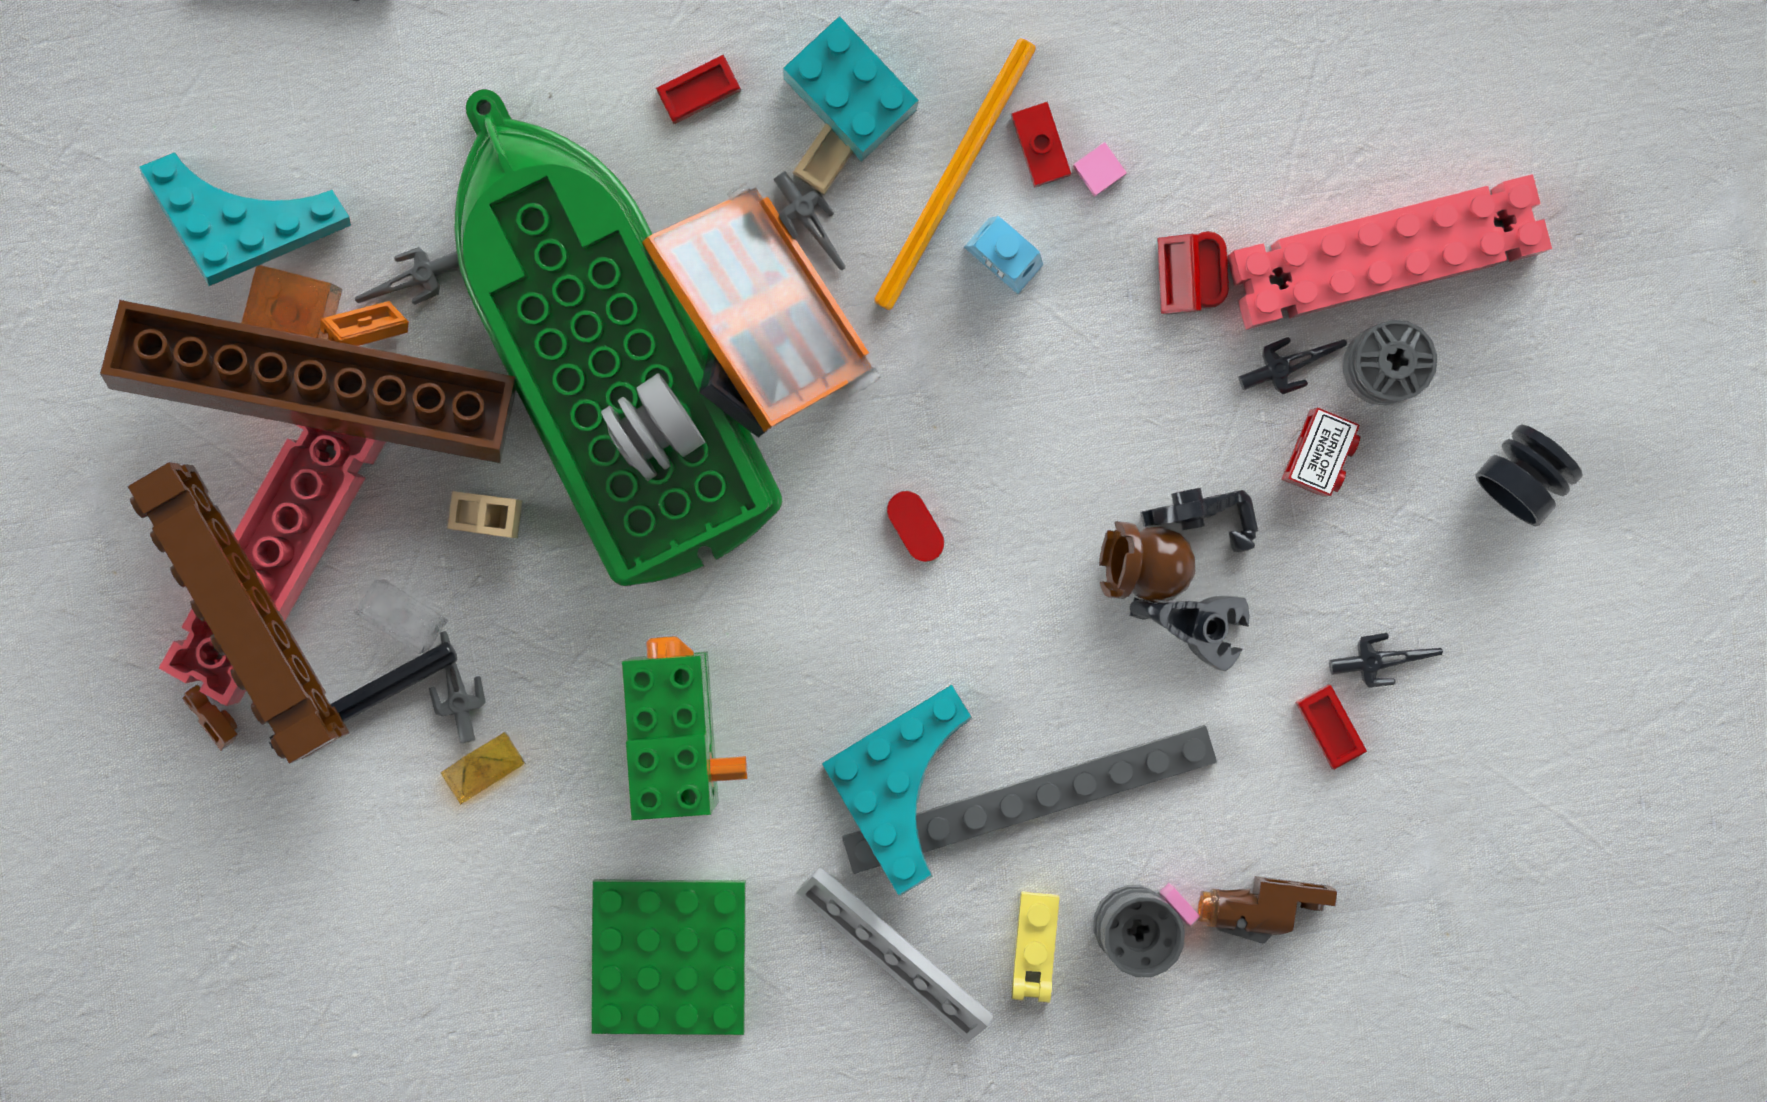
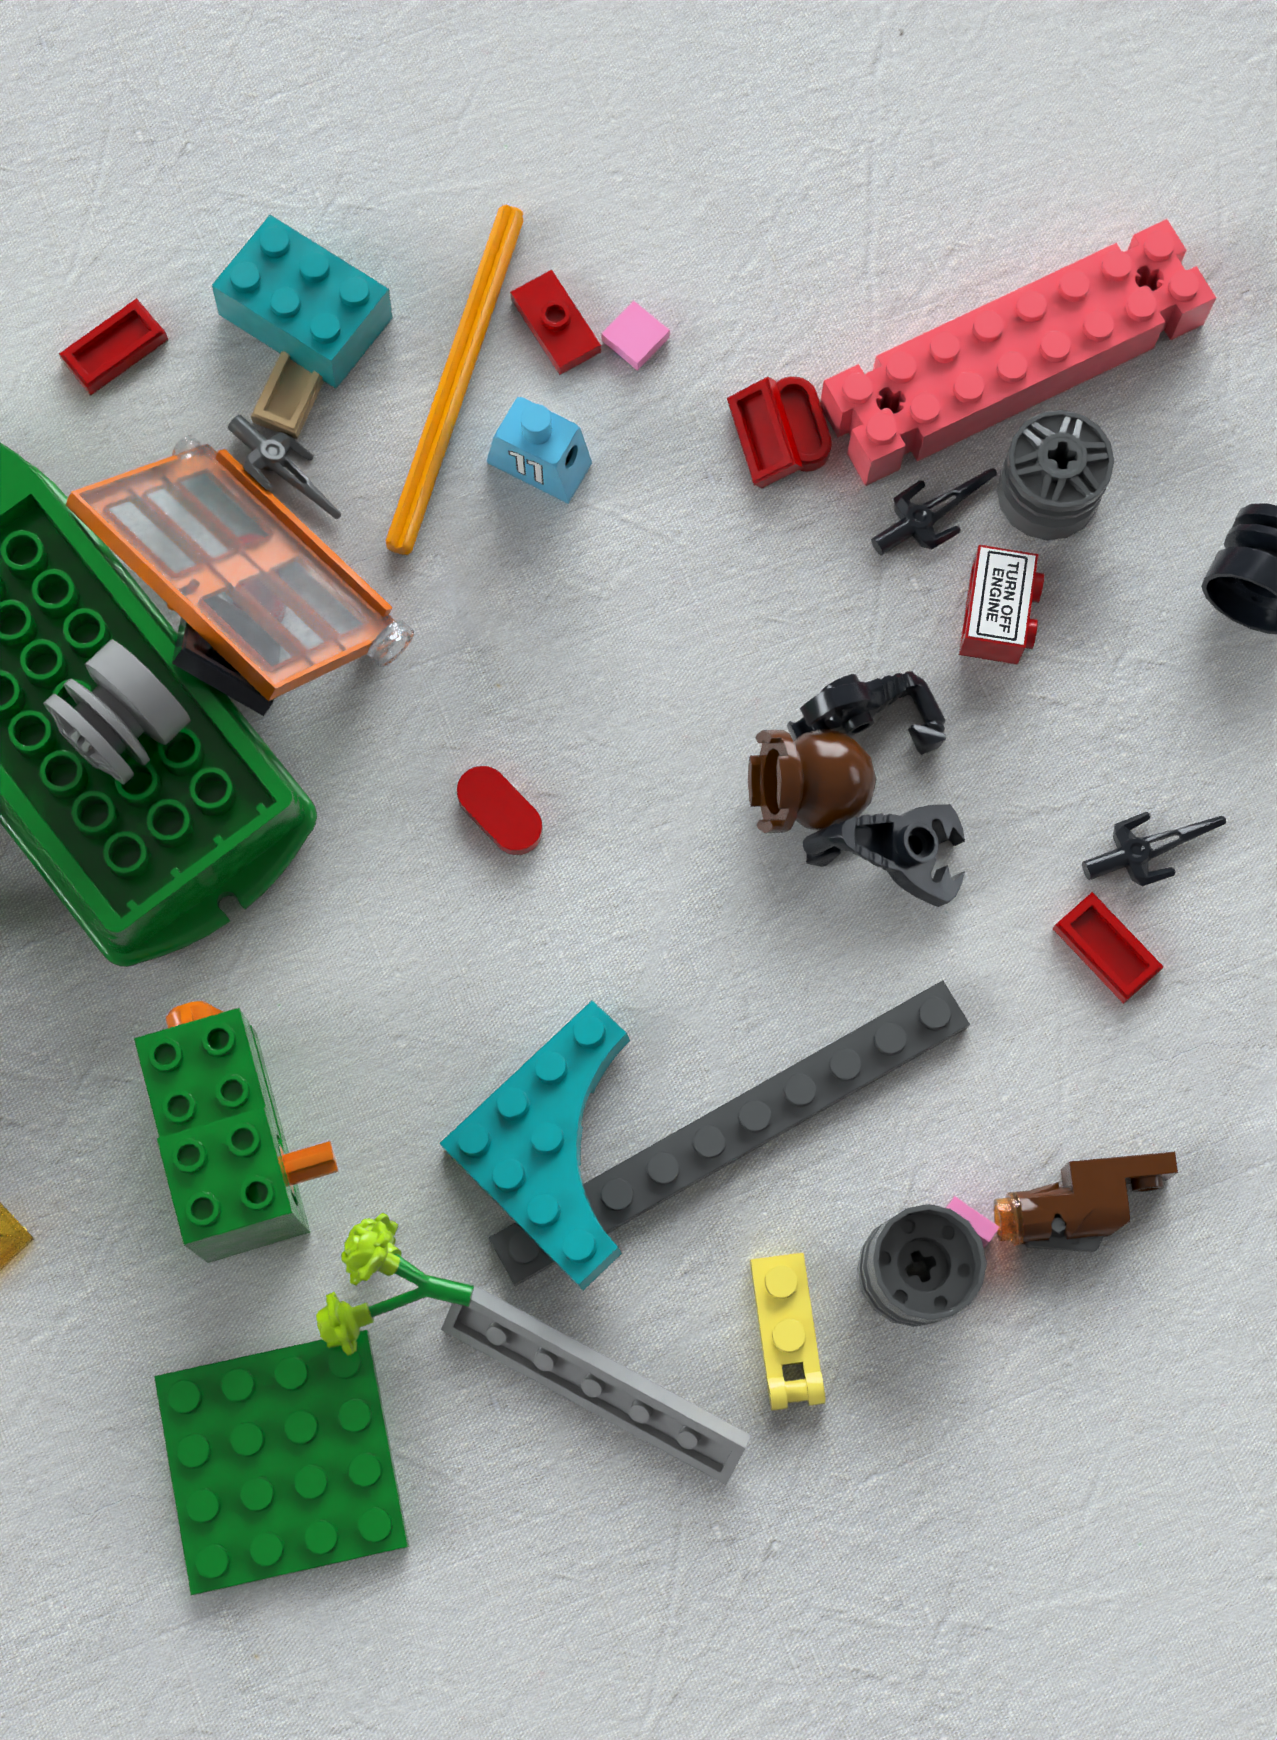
camera: 15 degrees left, 15 degrees down
(757, 846) = (371, 1250): none -> lime plant

